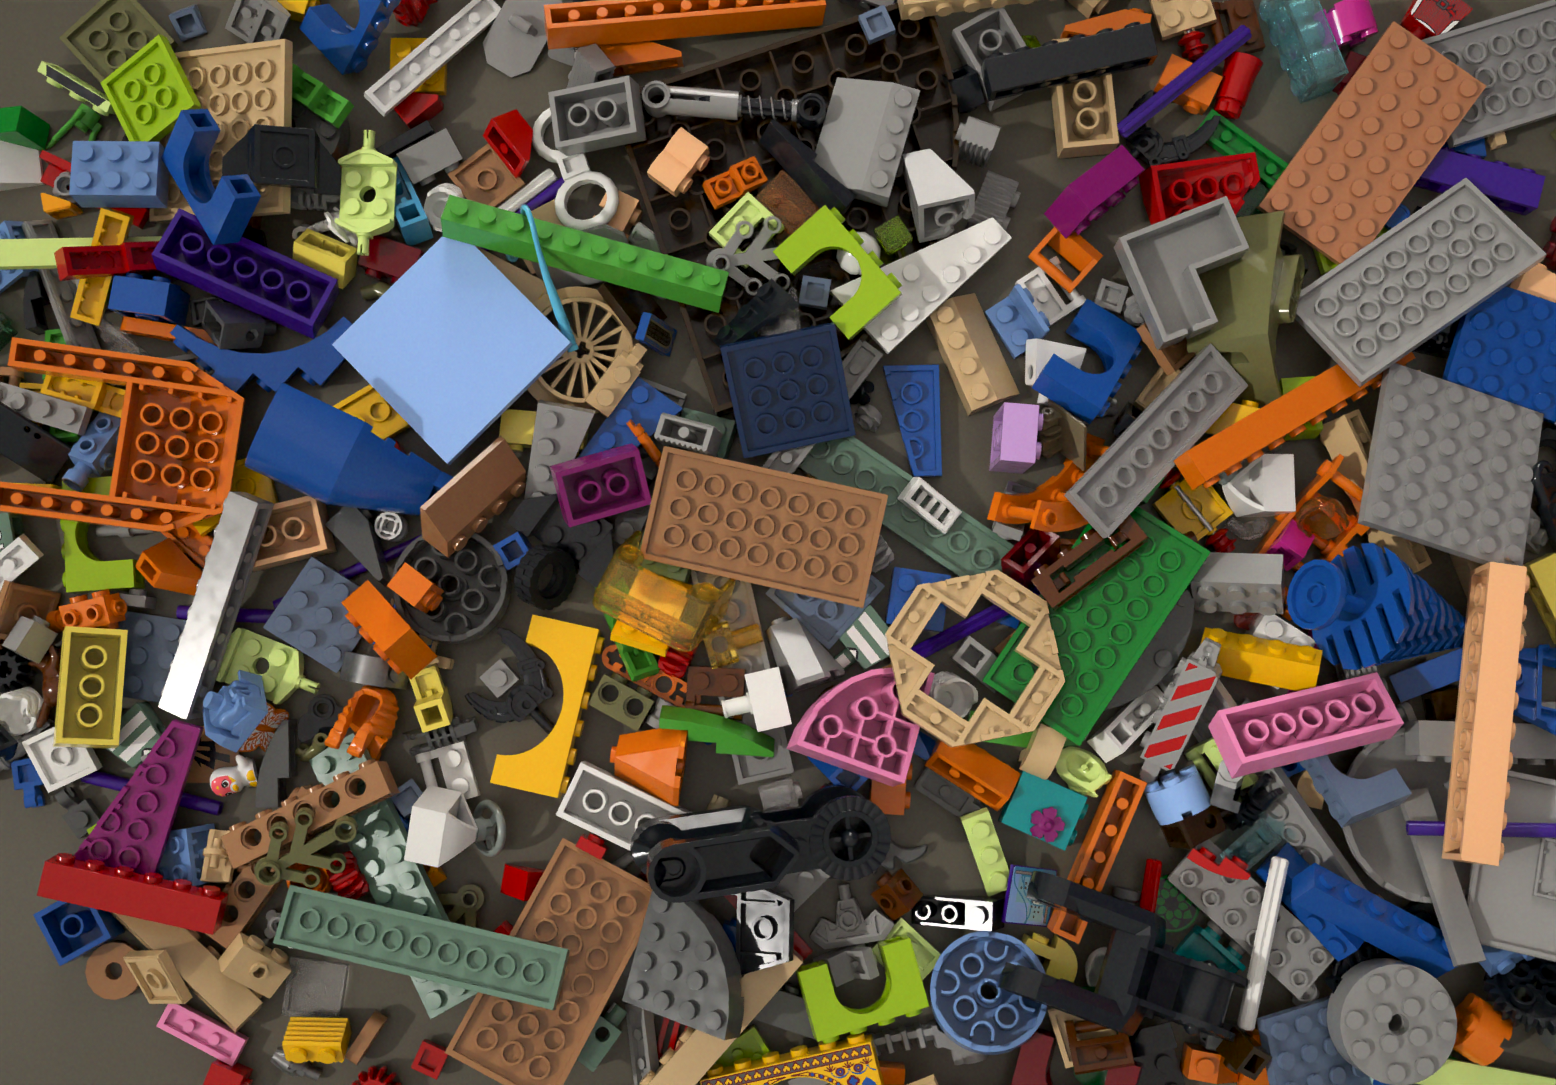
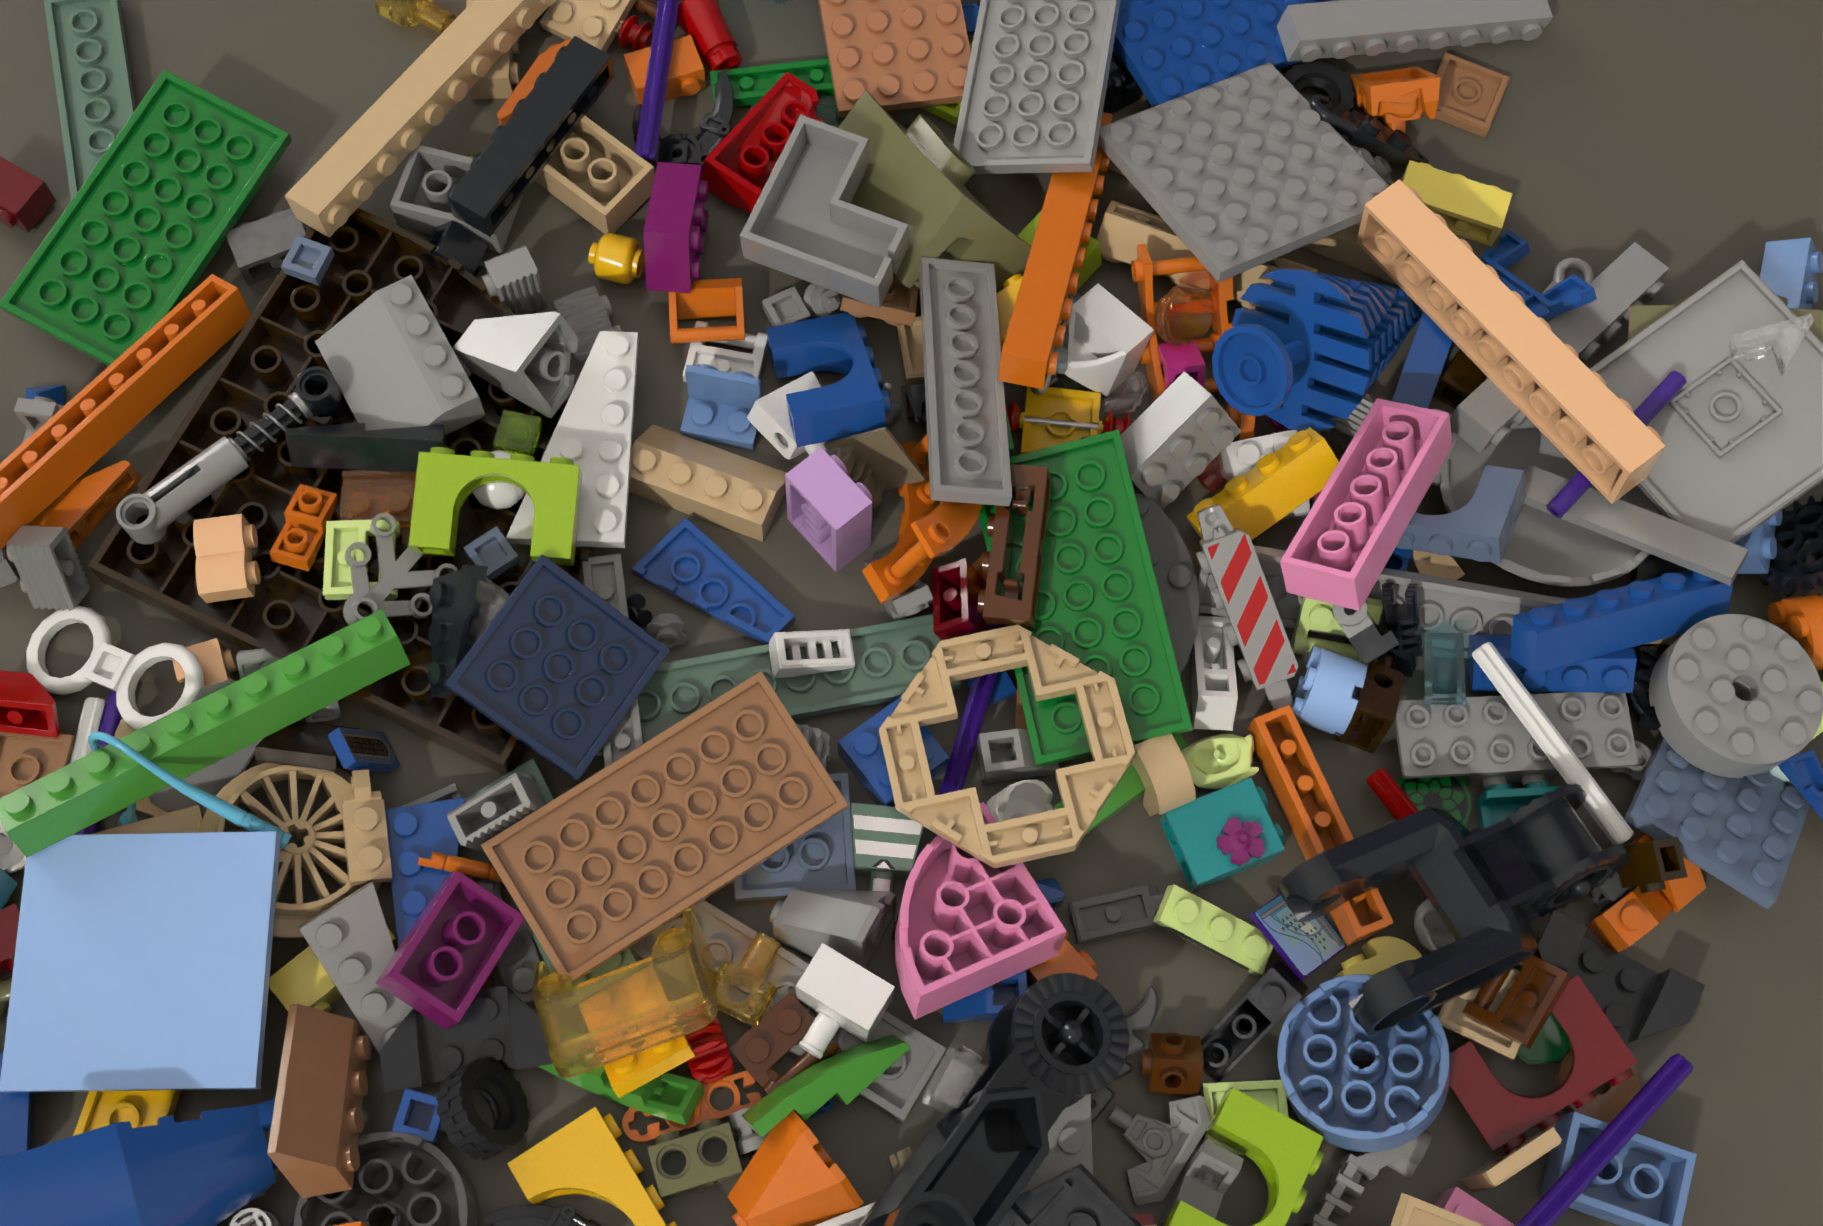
camera: 55 degrees left, 15 degrees down
(597, 116) = (90, 589): light grey brick -> none
(975, 772) = (1119, 863): orange brick -> none
(1048, 177) = (617, 258): none -> yellow head
(1228, 867) = (1445, 701): red slope -> none

